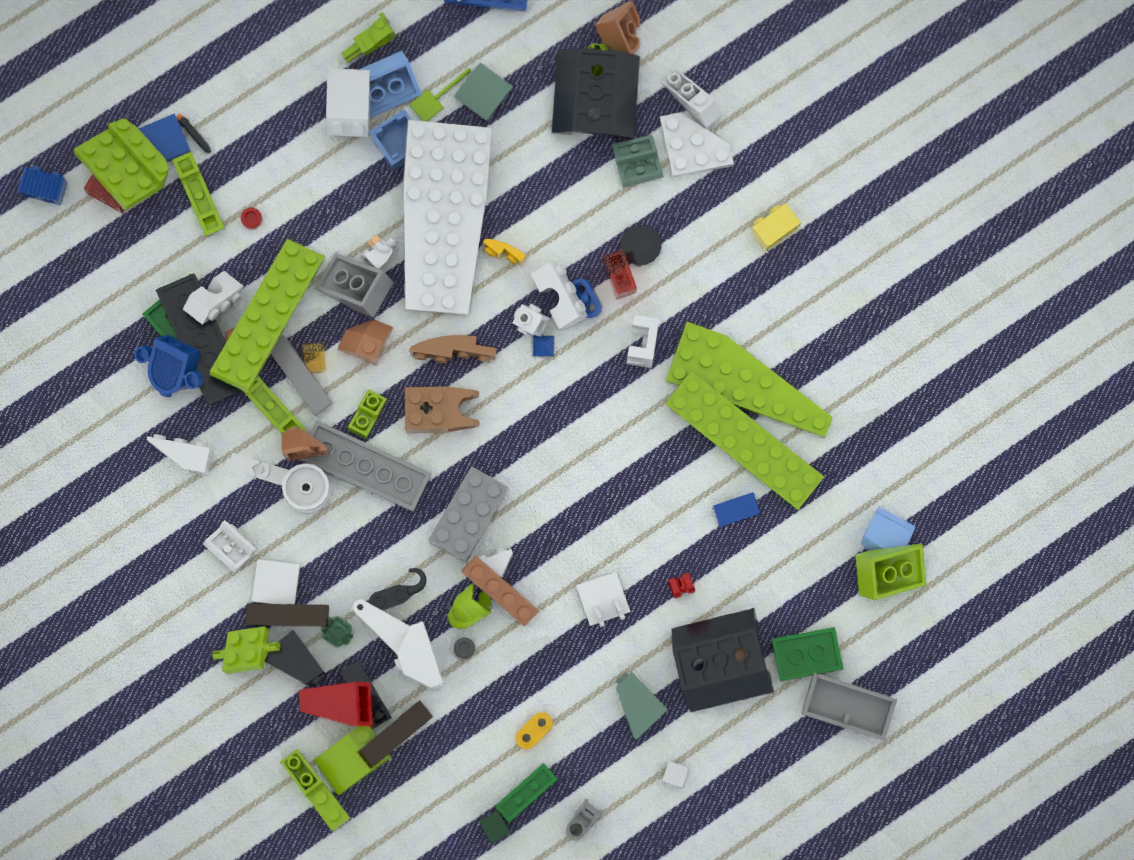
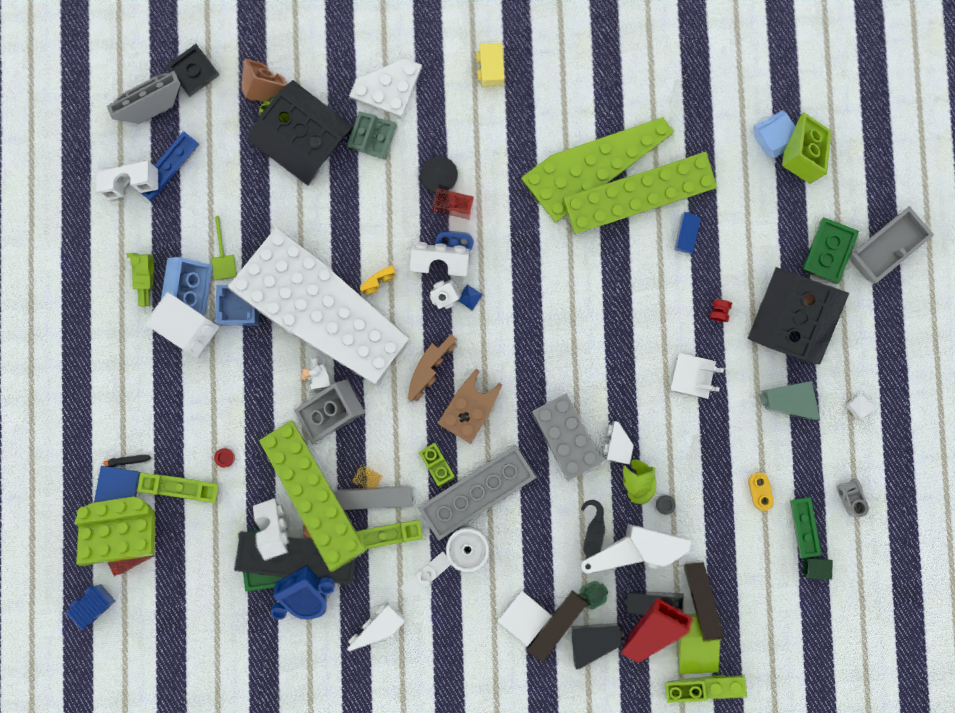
camera: 55 degrees left, 5 degrees up
(230, 546) = (474, 637): white bracket -> none
(246, 650) = (565, 676): lime plate -> none
(300, 445) = (430, 533): nougat slope -> none
(366, 340) = (378, 429): nougat slope -> none
(483, 91) = (241, 216): sand green slope -> none
(499, 590) = (641, 450): nougat plate -> none
(648, 328) = (521, 214): white panel -> none
(692, 98) = (351, 62): white slope -> none

